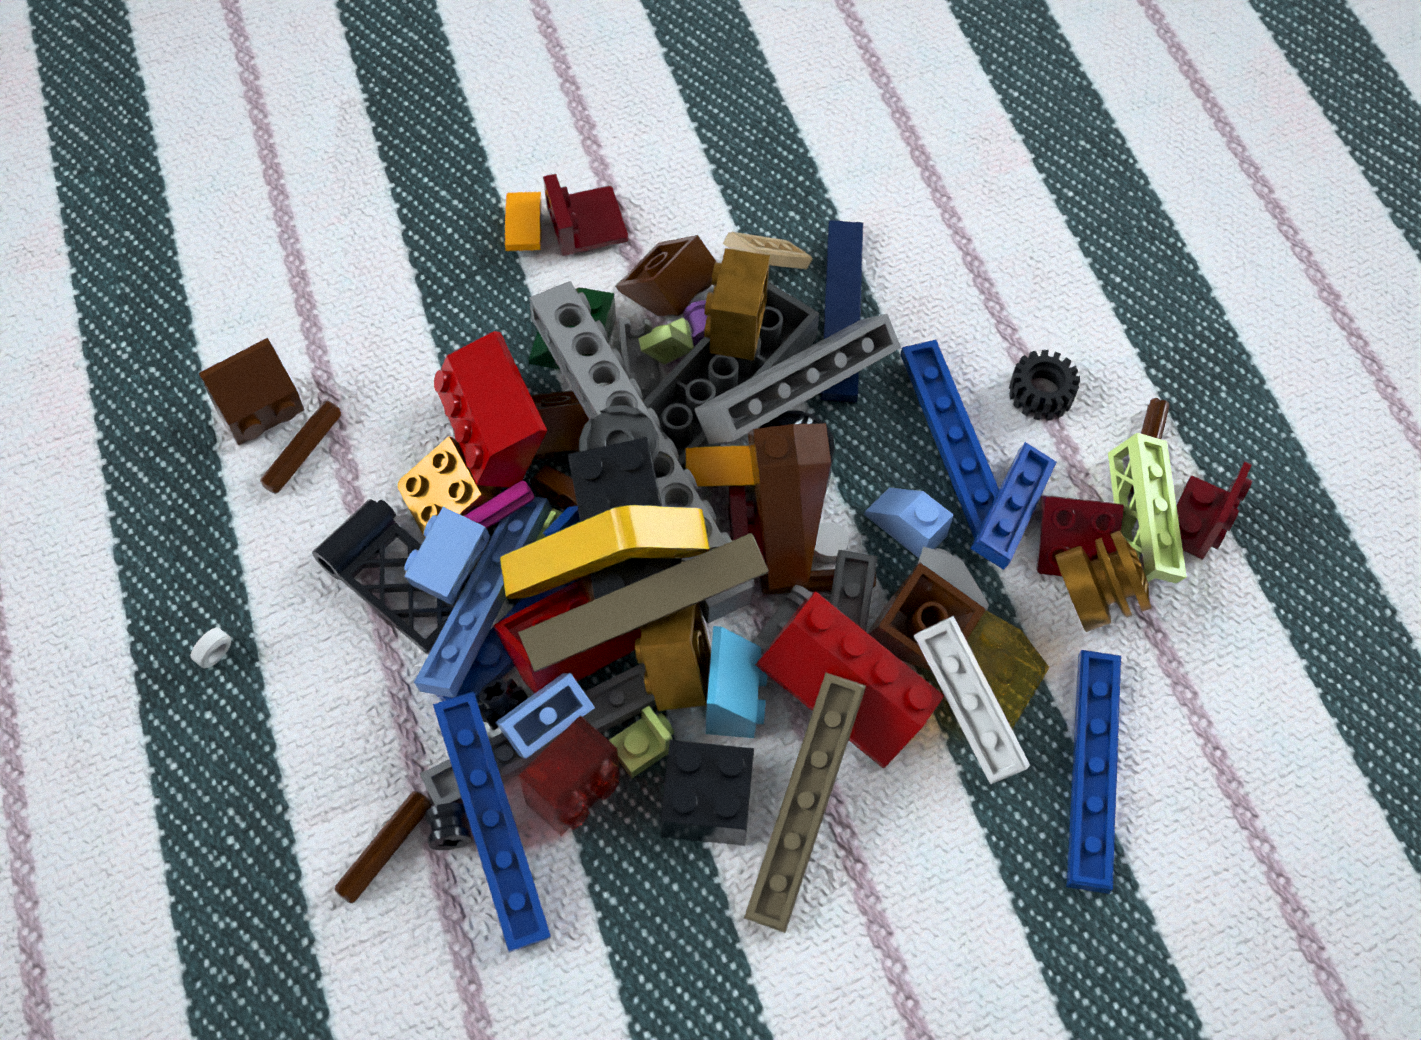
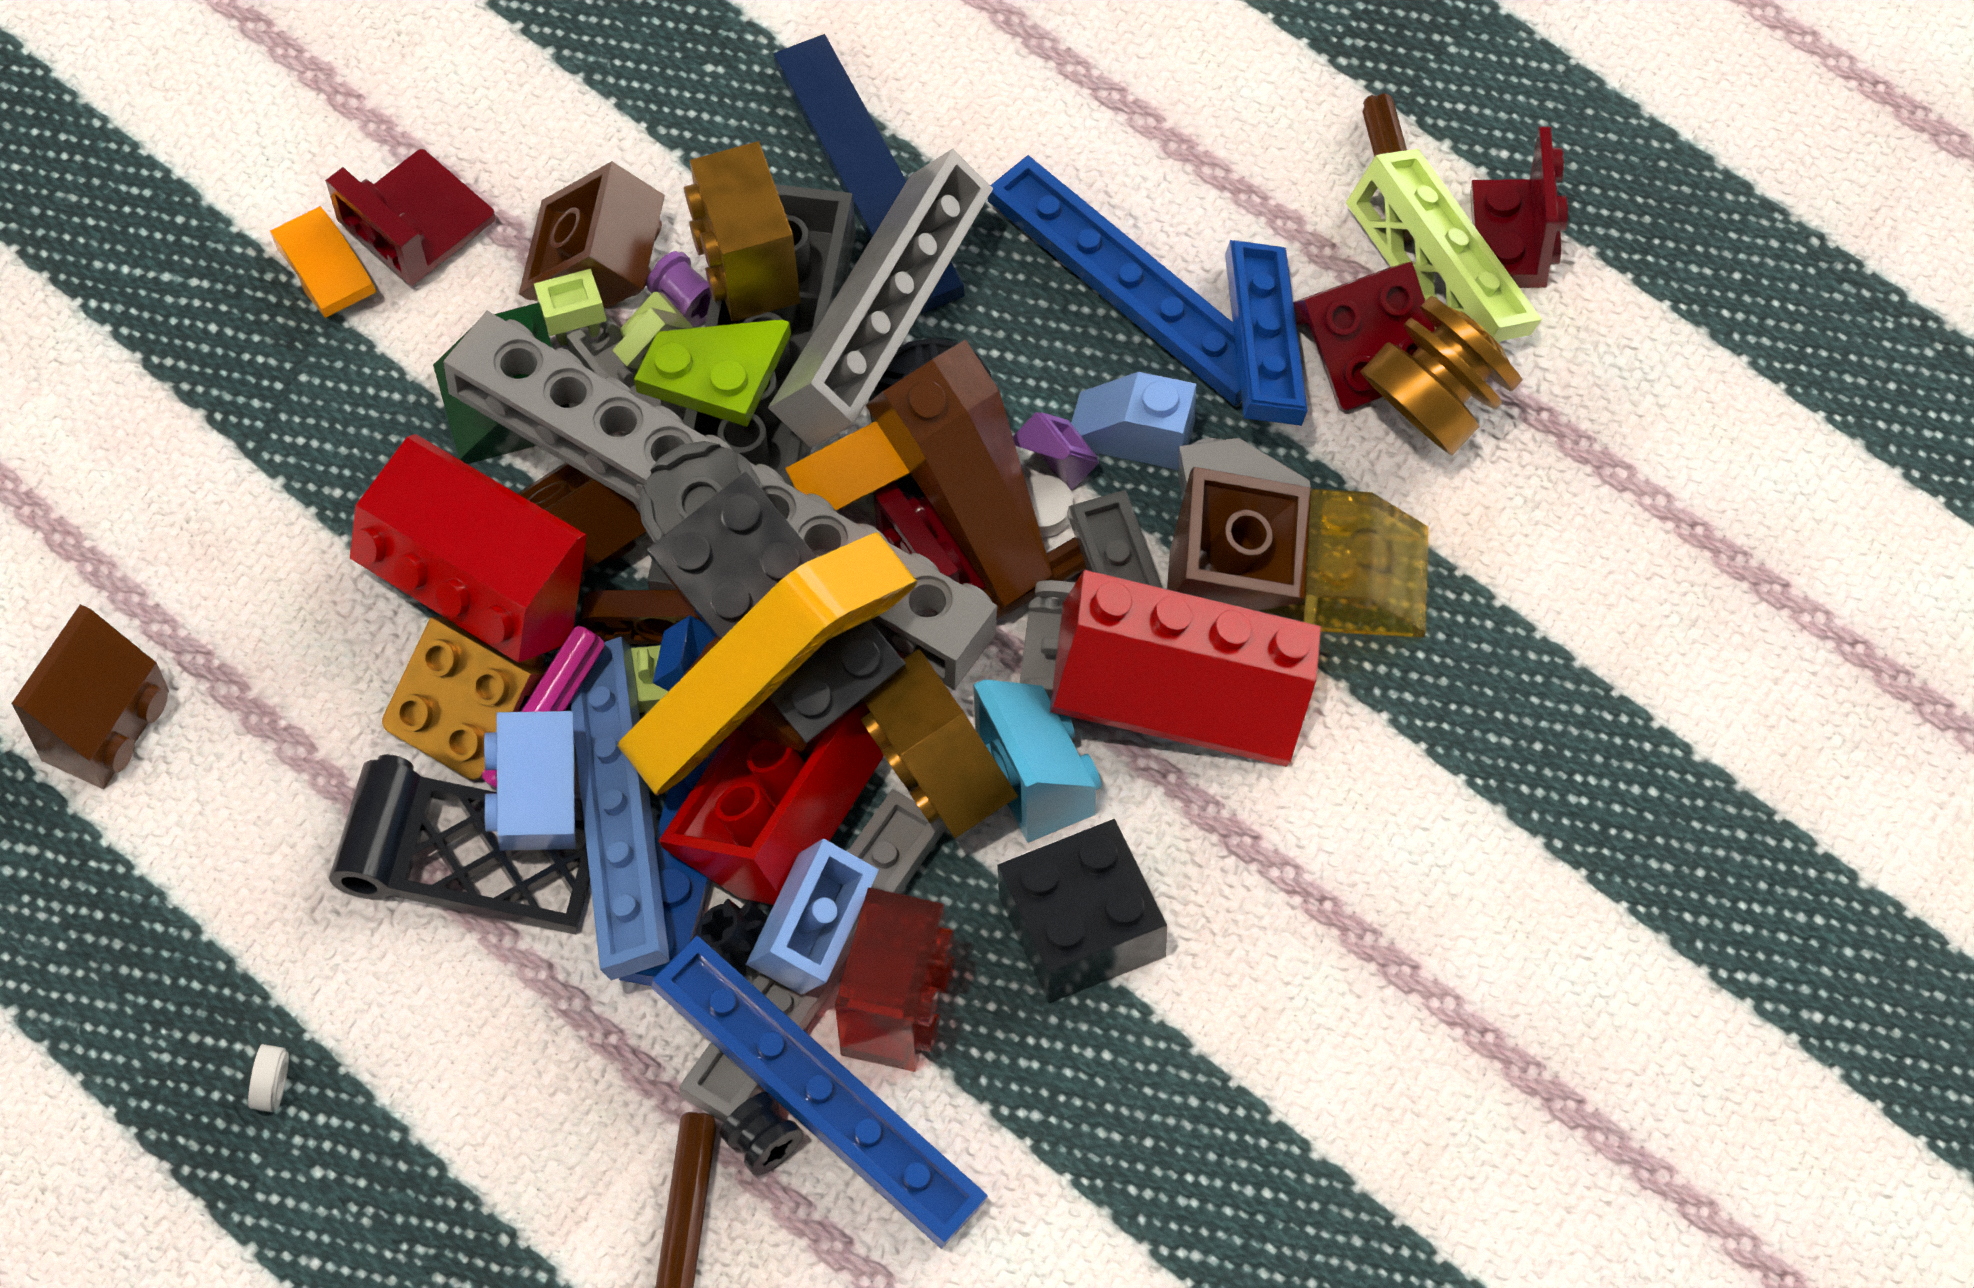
camera: 25 degrees left, 0 degrees up
(300, 447) = (204, 743): reddish brown axle -> none
(631, 302) = (570, 304): none -> yellowish green tile
(643, 602) = (868, 696): dark tan tile -> none
(643, 742) = (962, 881): yellowish green bracket -> none
(683, 373) = (714, 367): none -> lime wing
(781, 251) = (728, 132): tan tile -> none
(805, 803) = (1219, 854): dark tan tile -> none
(857, 510) = (1059, 446): none -> medium lavender slope
(972, 700) = (1359, 613): white tile -> none
(1052, 370) = (1216, 123): black tyre -> none
(1094, 773) = (1558, 630): blue tile -> none

